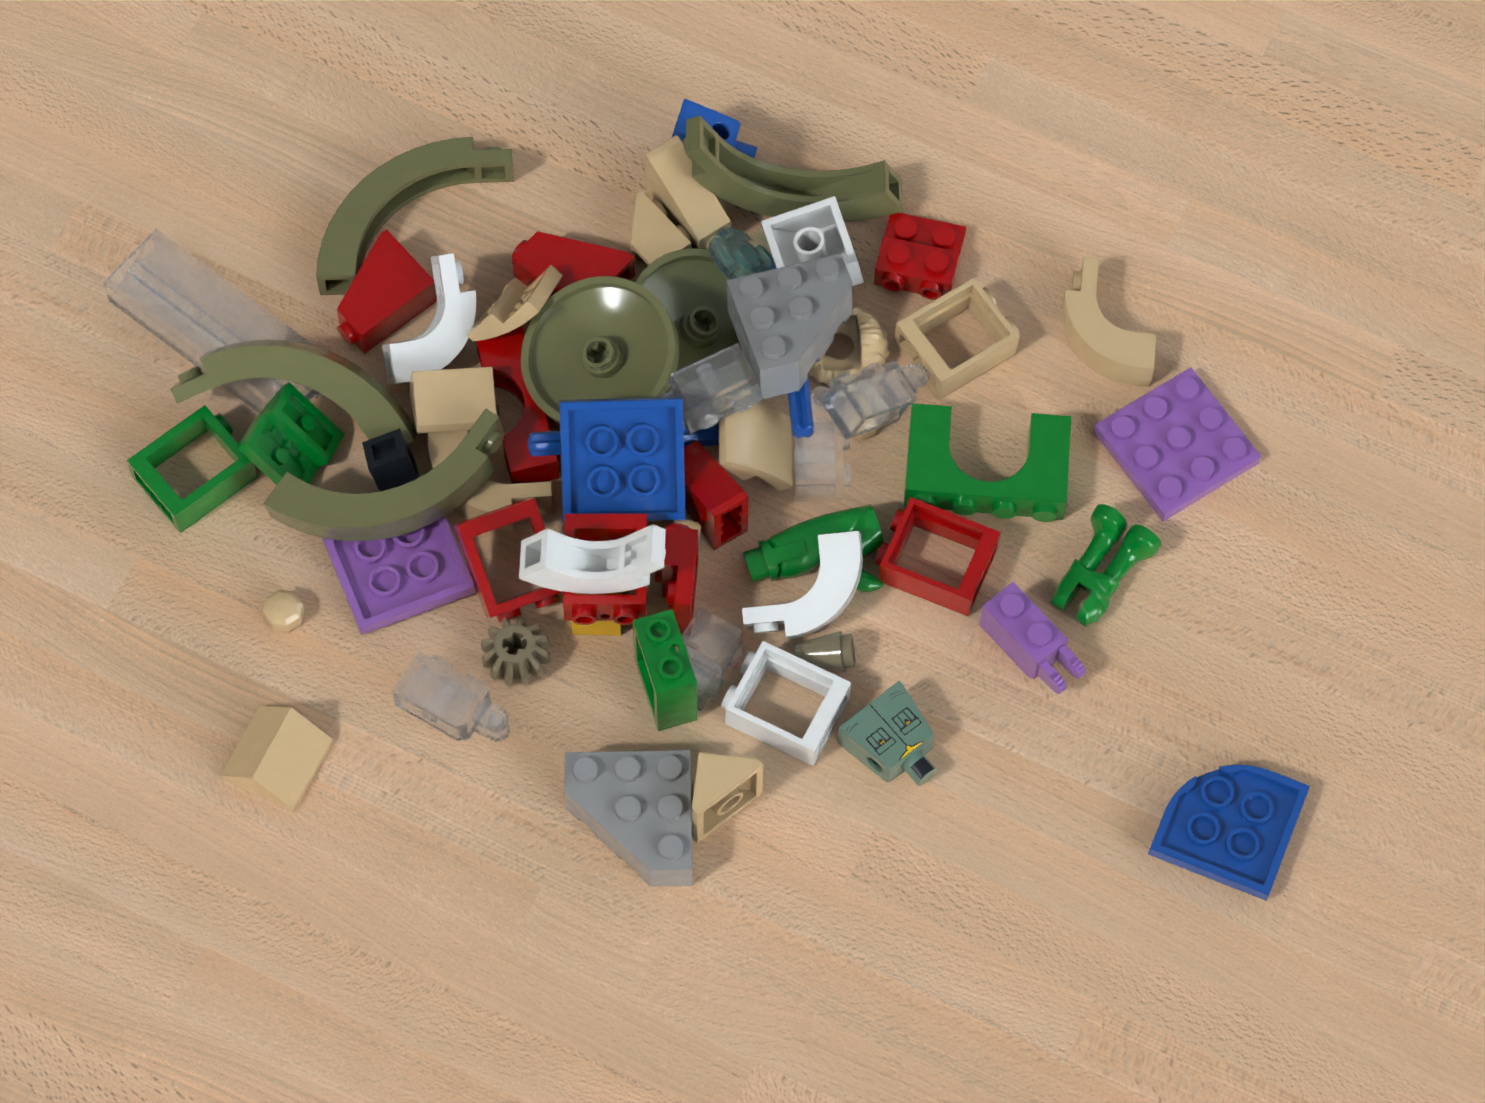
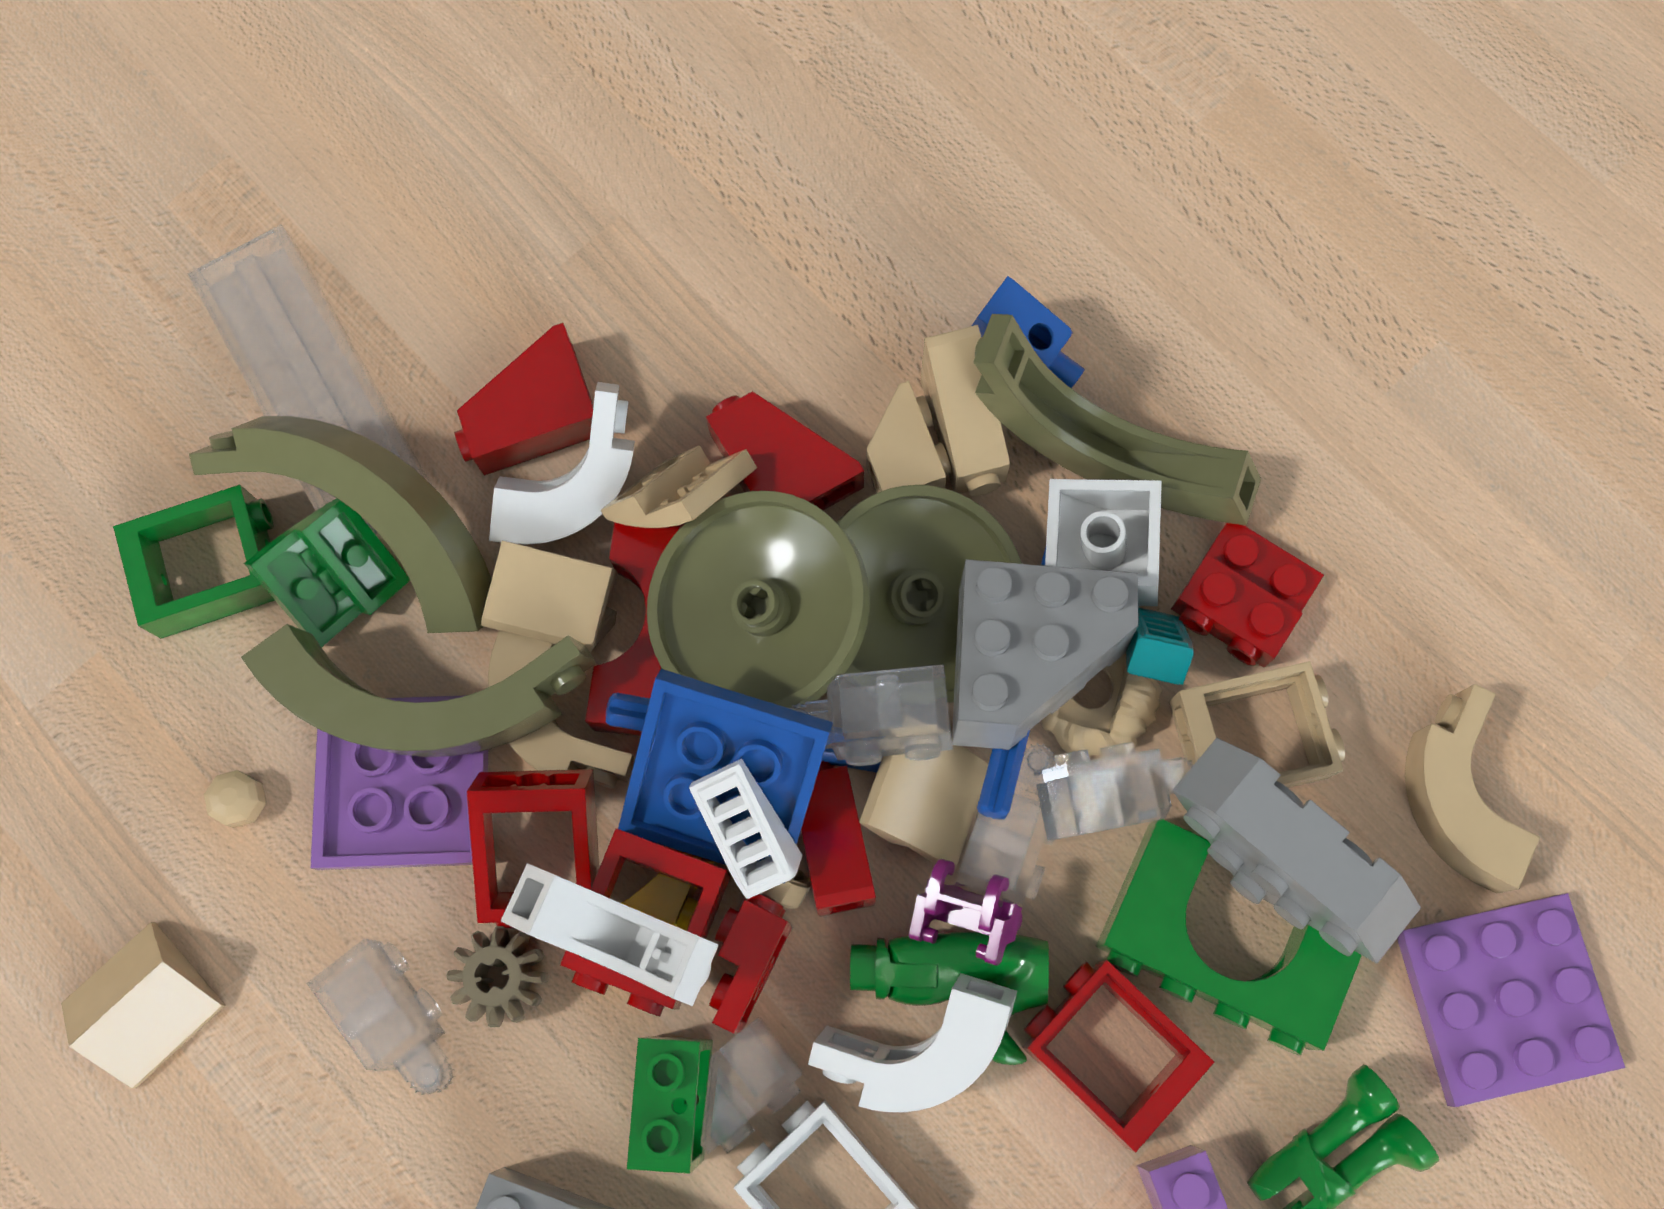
camera: 25 degrees right, 10 degrees up
(389, 190) = (593, 268): olive arch -> none
(390, 460) = (435, 655): black brick -> none
(674, 507) = (741, 860): none -> white slope
(737, 256) = (1003, 523): clear light blue tile -> none
(809, 499) = (967, 910): none -> magenta piece
(828, 651) = (911, 1138): dark tan cone -> none
(873, 302) = (1160, 648): none -> teal slope
(996, 385) = (1293, 854): none -> light grey brick

